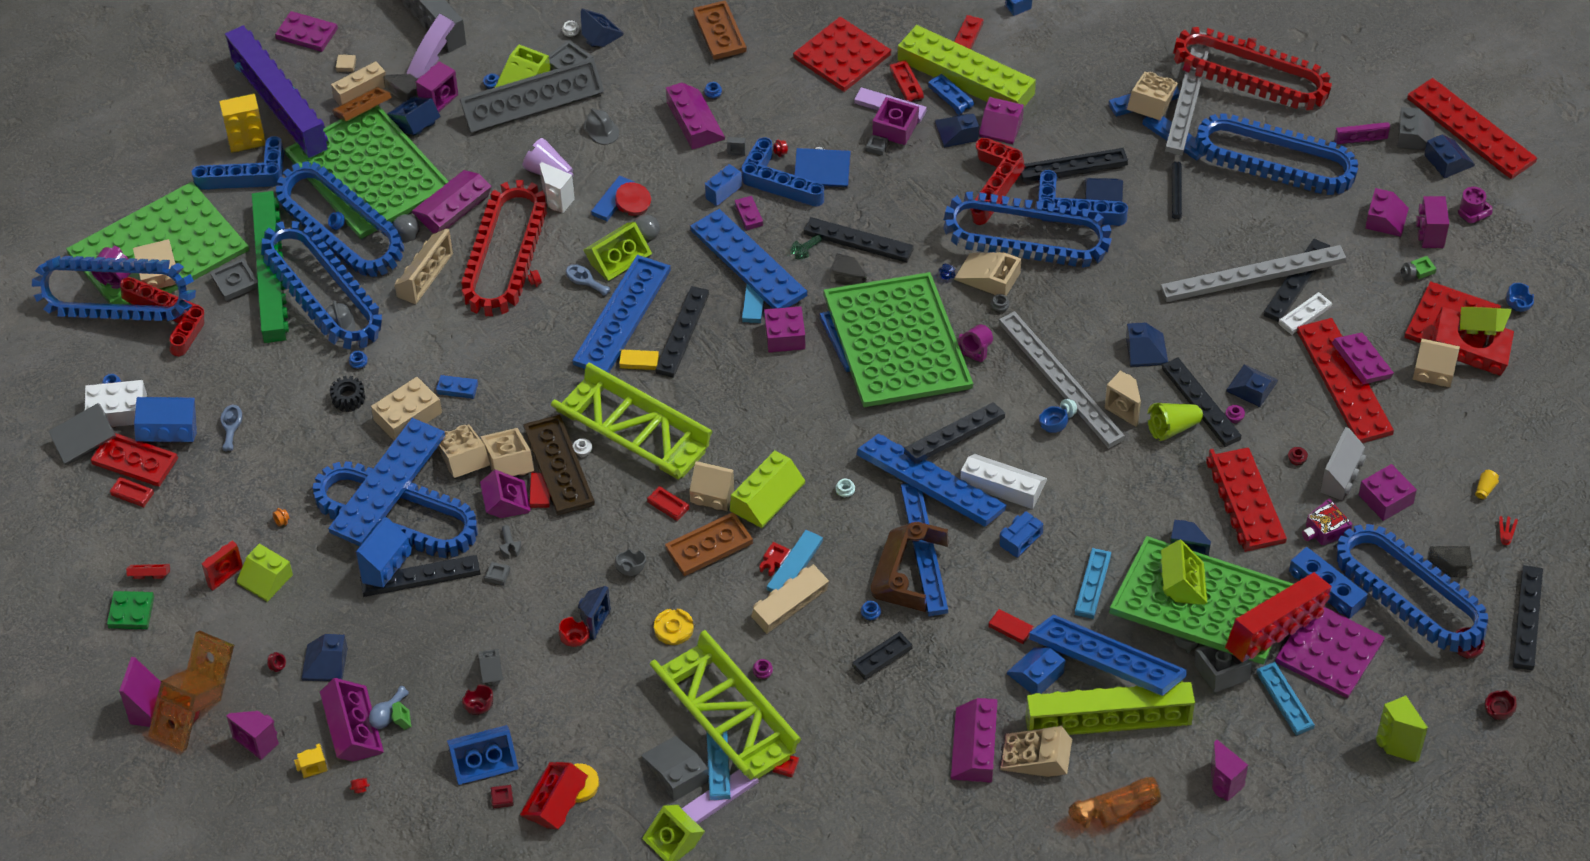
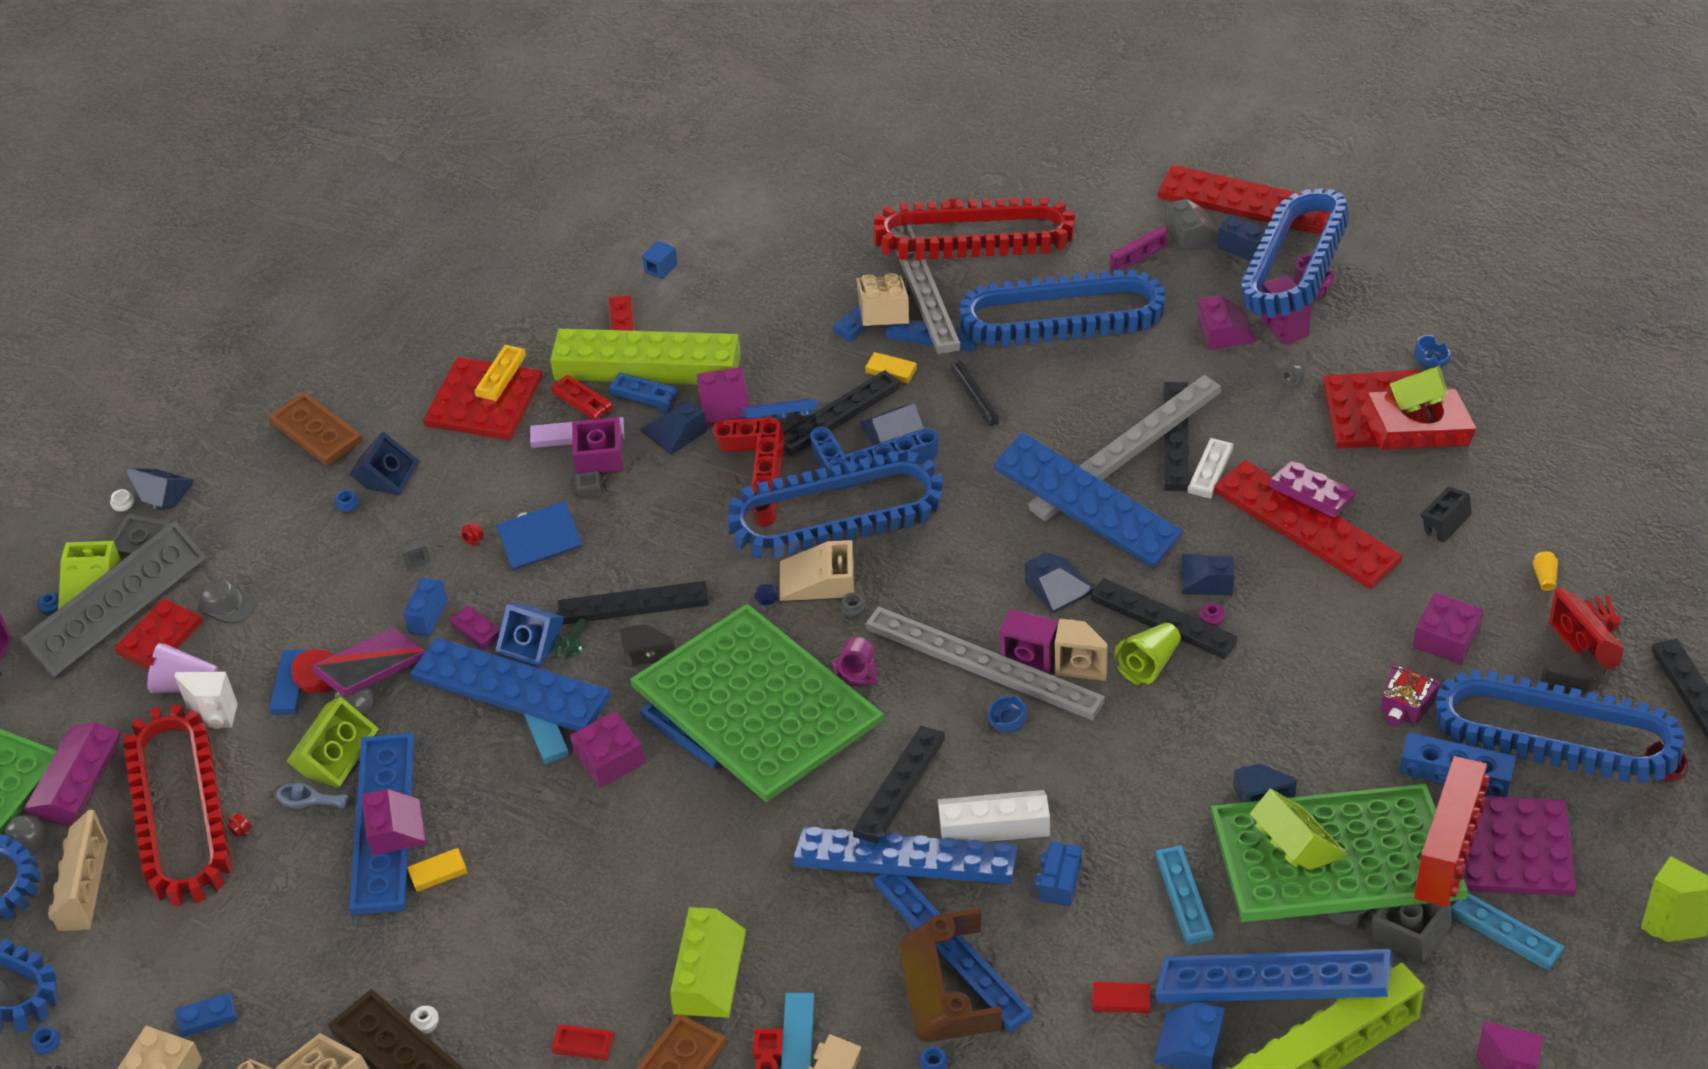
camera: 25 degrees left, 5 degrees down
(553, 128) = (163, 624): none -> red plate
(625, 316) = (392, 821): none -> magenta slope
(667, 206) = (368, 662): none -> tile
(677, 460) = (563, 979): lime piece -> none
(682, 331) = (474, 810): black plate -> none
(693, 115) = (338, 541): magenta slope -> none
(711, 486) = (632, 992): tan slope -> none
(750, 76) = (384, 466): none -> dark blue slope
(759, 176) = (491, 575): blue beam -> none
(778, 231) = (528, 633): none -> blue slope
(845, 484) = (803, 909): light aqua plate -> none
(861, 40) = (500, 372): none -> yellow tile
(1032, 146) = (780, 409): none -> blue plate
(1070, 407) = (1017, 688): light aqua plate -> none
(1093, 375) = (1029, 639): none -> magenta brick
(1132, 148) = (898, 368): none -> yellow tile
(1200, 299) = (1088, 500): none -> blue plate
(1246, 499) = (1293, 709): red bracket -> none
(1297, 455) = (1316, 631): dark red plate -> none
(1343, 466) = (1379, 620): light grey slope -> none
(1424, 267) = (1307, 361): bright green plate -> none
(1436, 363) = (1398, 459): tan slope -> none
(1445, 415) = (1447, 513): none -> black hinge
(1476, 195) = (1318, 263): none -> blue piece
(1480, 535) = (1582, 629): none -> red slope

